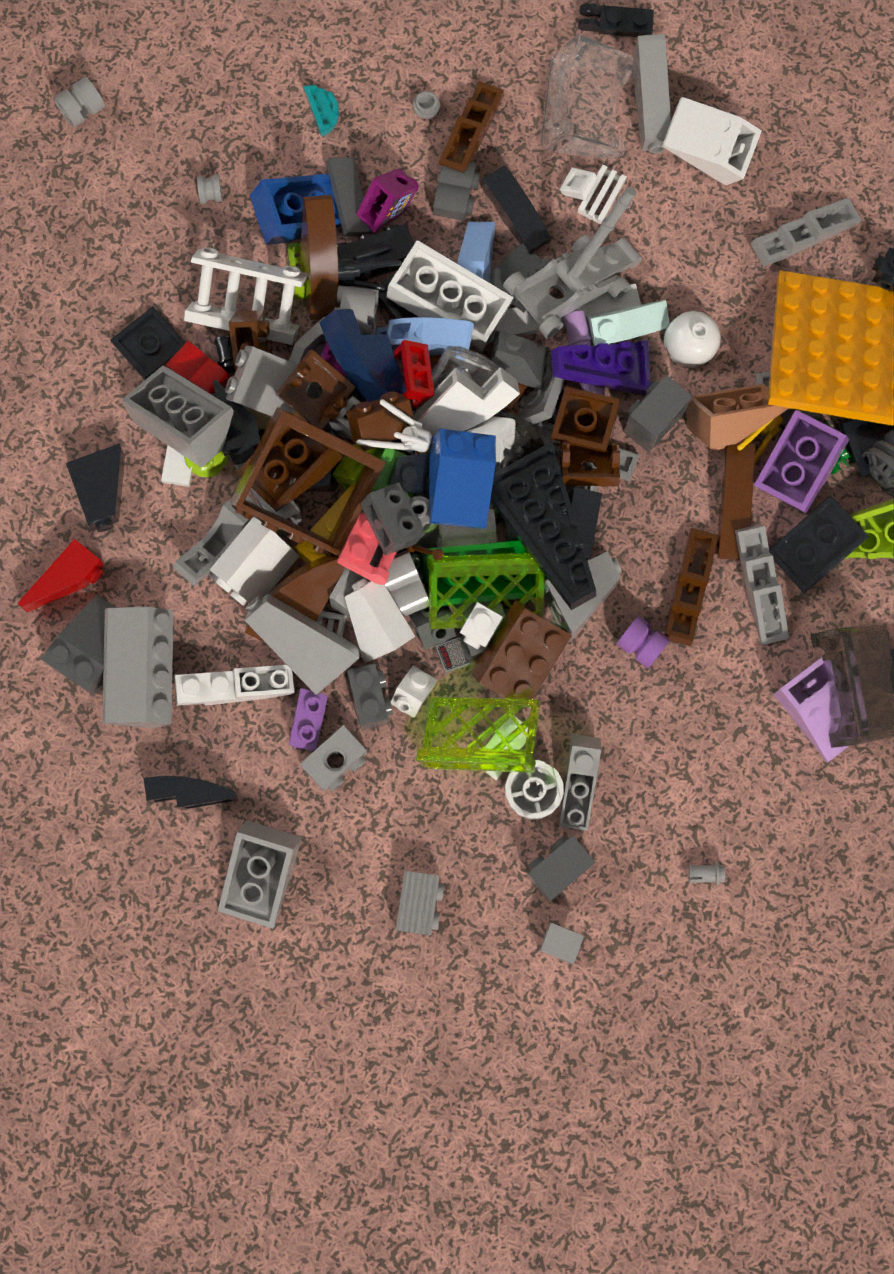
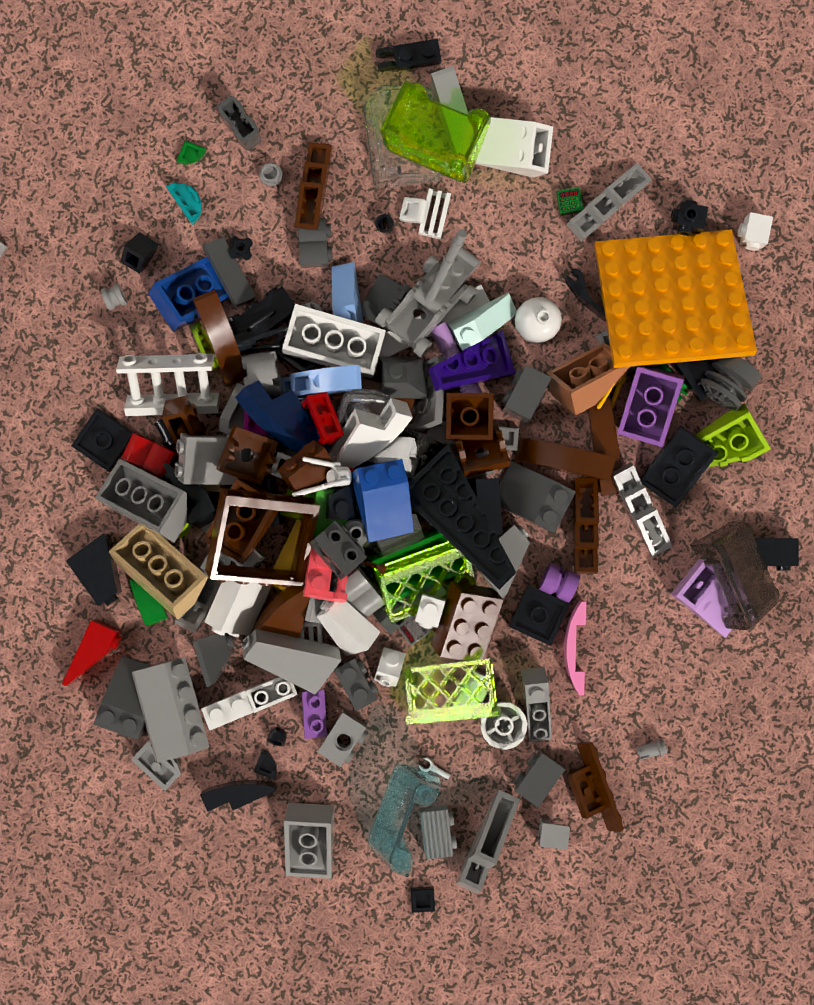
camera: 10 degrees left, 10 degrees up
(105, 740) = (162, 773): none -> light grey wing
(148, 536) = (149, 608): none -> green slope
(173, 499) = (159, 569): none -> tan slope
(209, 617) = (213, 655): none -> dark grey slope
(231, 770) = (266, 765): none -> black tile
(251, 149) = (138, 252): none -> black brick
(254, 735) = (277, 738): none -> black hinge
(341, 60) = (190, 153): none -> green tile
(352, 890) = (404, 788): none -> clear light blue windscreen
(366, 167) = (240, 254): none -> black plate
(378, 985) = (422, 899): none -> black tile
(391, 192) = (265, 259): magenta torso -> none
(406, 40) = (238, 122): none -> dark grey brick
(435, 827) = (434, 768): none -> white hand
(477, 932) = (488, 842): none -> light grey slope
(516, 209) = (368, 247): black slope -> none
(536, 189) = (380, 226): none -> black hinge
(609, 675) = (539, 615): none -> black plate
(623, 902) = (592, 789): none -> reddish brown bracket
(624, 101) = (434, 133): none -> clear neon green windscreen
(635, 758) = (577, 617): none -> bright pink slope
(638, 537) = (534, 497): none -> dark grey slope
(685, 500) = (565, 459): none -> reddish brown slope
(748, 318) = (579, 290): none -> black arm
(760, 219) = (569, 201): none -> tile

